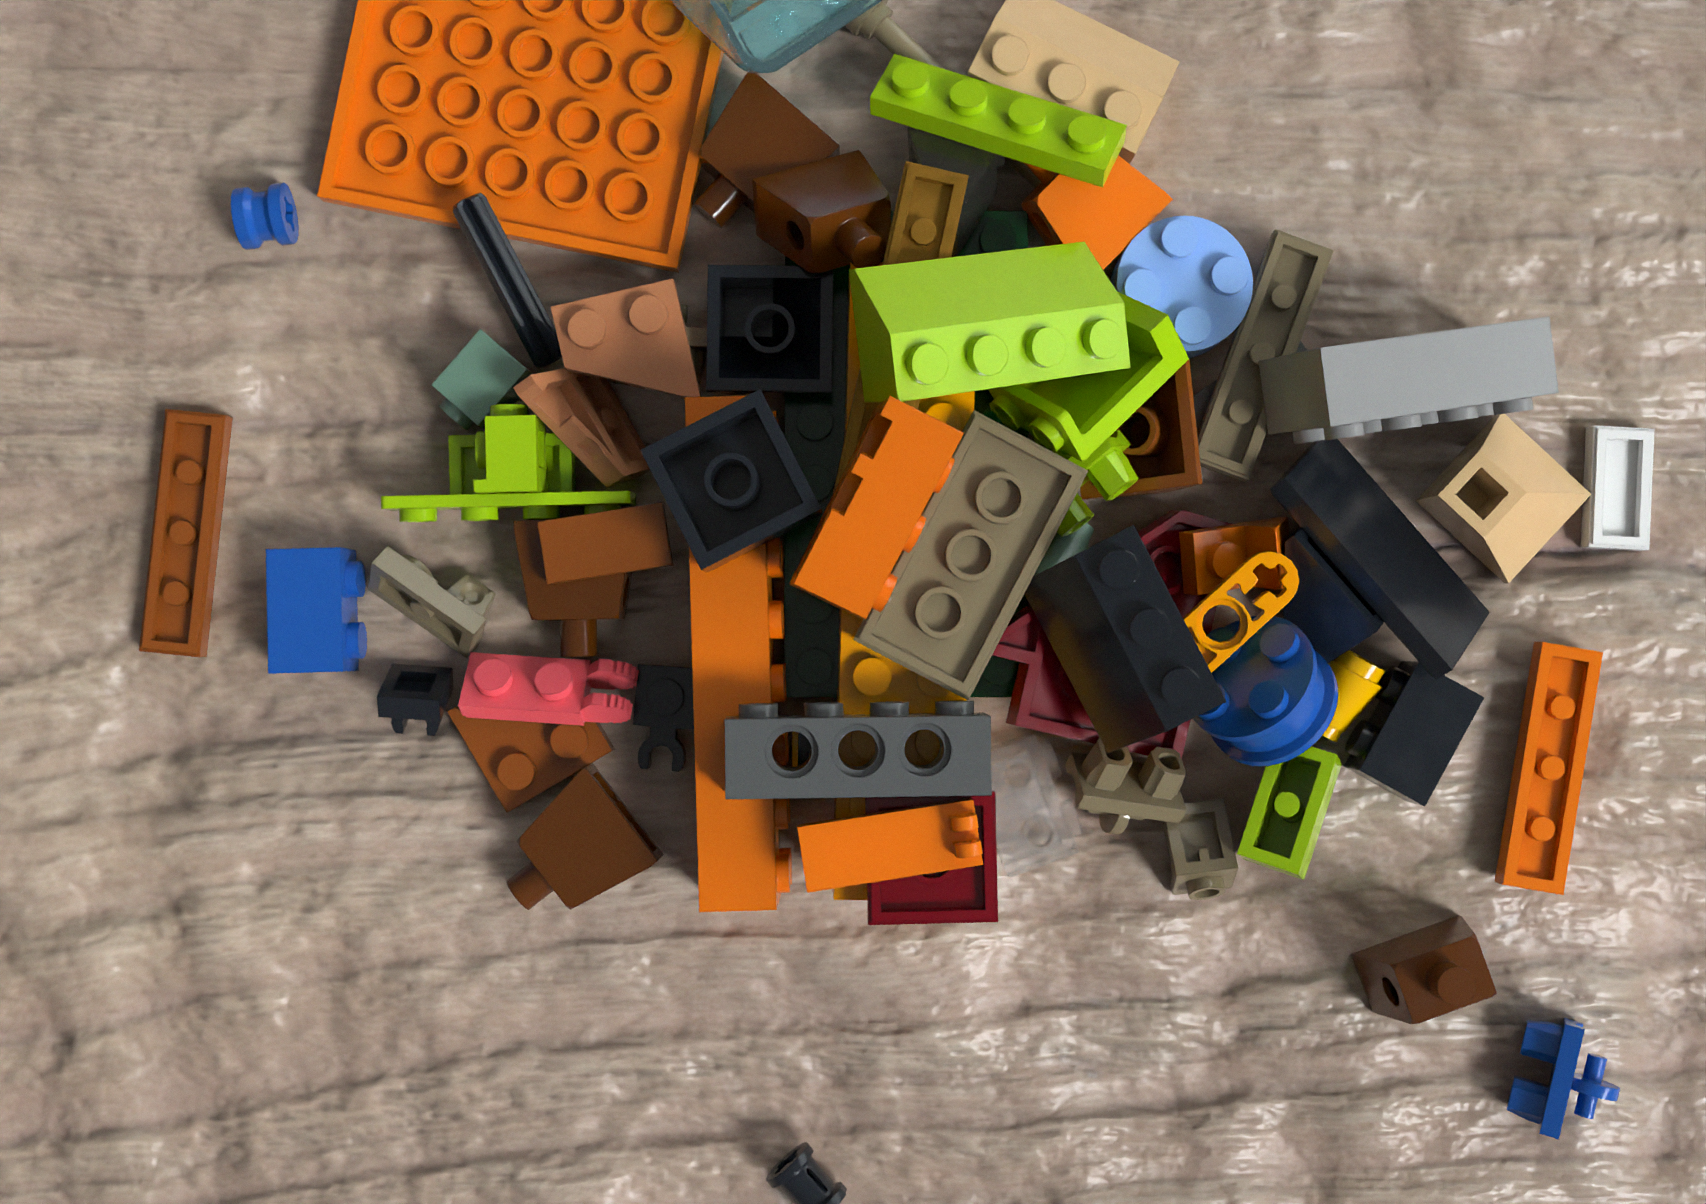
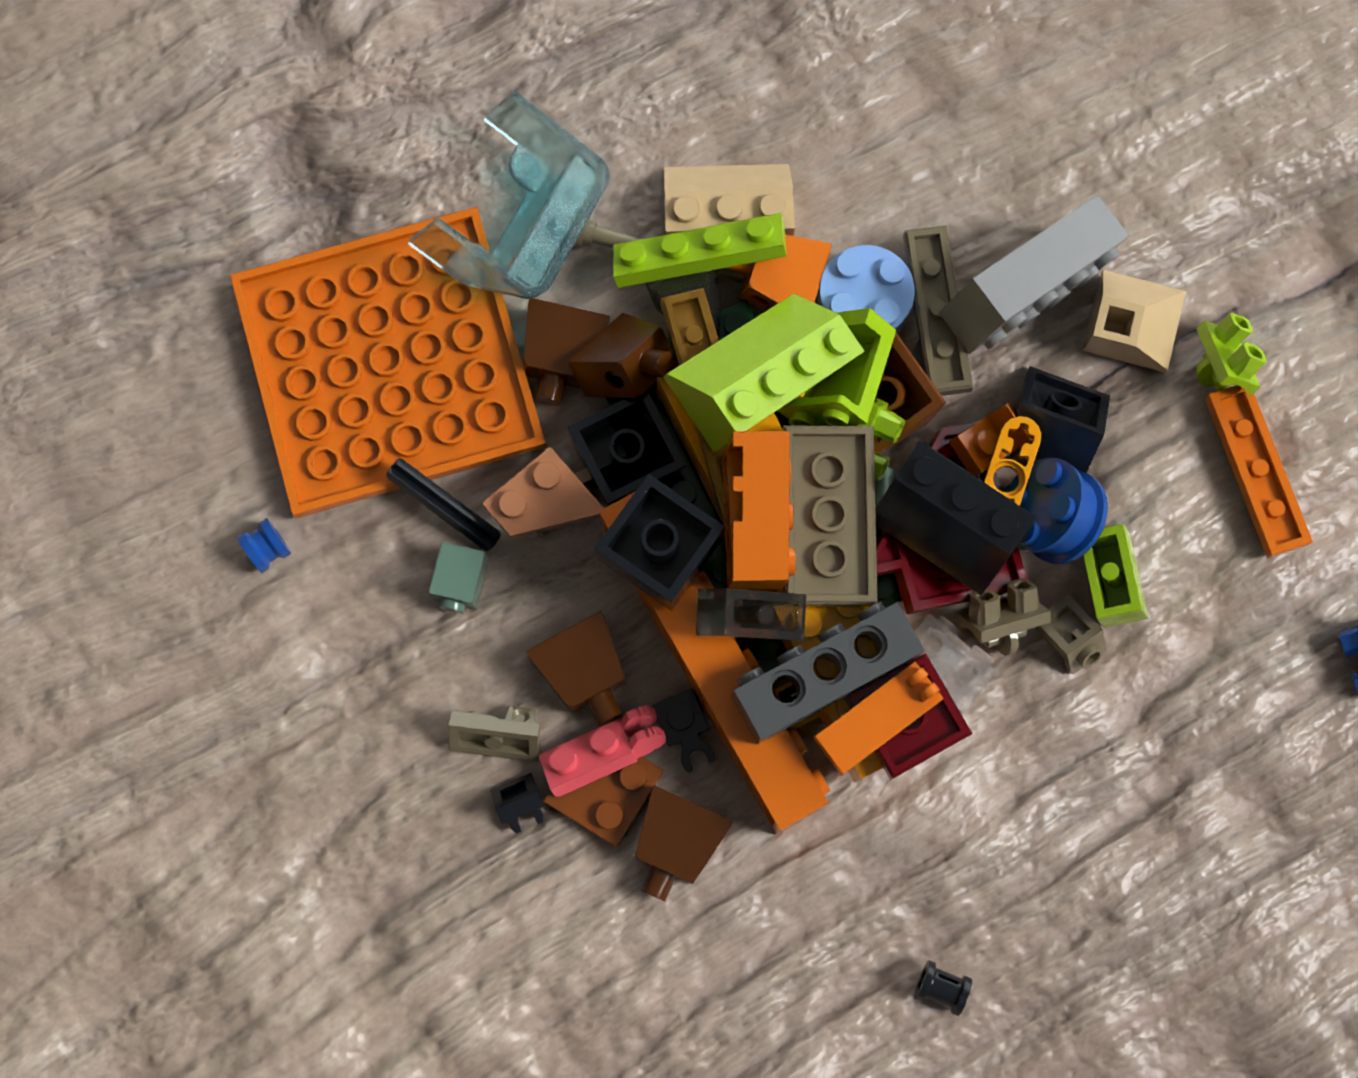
camera: 25 degrees left, 10 degrees down
(185, 533) = (311, 777): dark orange tile -> none
(314, 610) = (423, 780): blue brick -> none
(484, 507) = (506, 626): lime bracket -> none
(511, 451) = (503, 608): lime brick -> none
(588, 421) = (541, 565): nougat wing -> none
(605, 543) = (593, 633): dark orange tile -> none
(799, 633) = (750, 614): none -> clear smoke slope
(1357, 687) = (1113, 480): yellow cone -> none
(1381, 554) = (1080, 391): black tile -> none
(1411, 731) = (1161, 491): black brick -> none
(1430, 969) = (1259, 631): reddish brown torso -> none
(1590, 609) = (1226, 357): none -> lime hips
(1620, 485) = (1199, 275): white tile -> none

